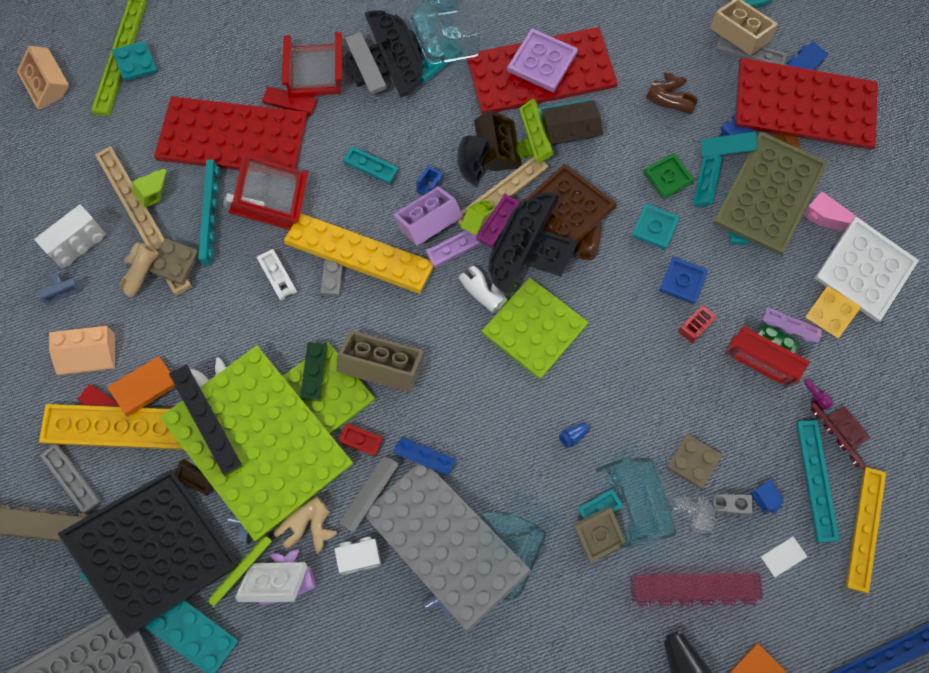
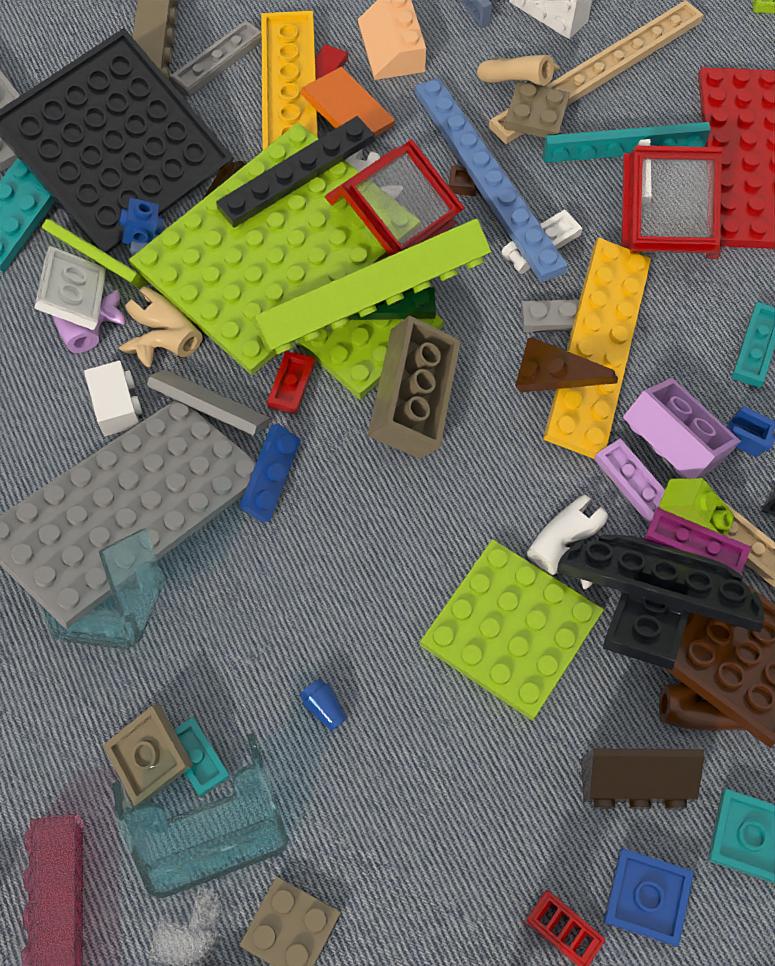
camera: 80 degrees right, 5 degrees down
(149, 188) = (648, 67): lime slope -> none
(217, 318) = (460, 182): none -> reddish brown tile
(219, 301) = (491, 181): none -> medium blue plate
(224, 532) = (140, 221): none -> blue brick
(239, 356) = (400, 199): none -> piece
(310, 377) = (372, 285): none -> lime brick
(375, 280) = (553, 368): none -> reddish brown wing
(625, 273) = (642, 777): none -> dark brown slope

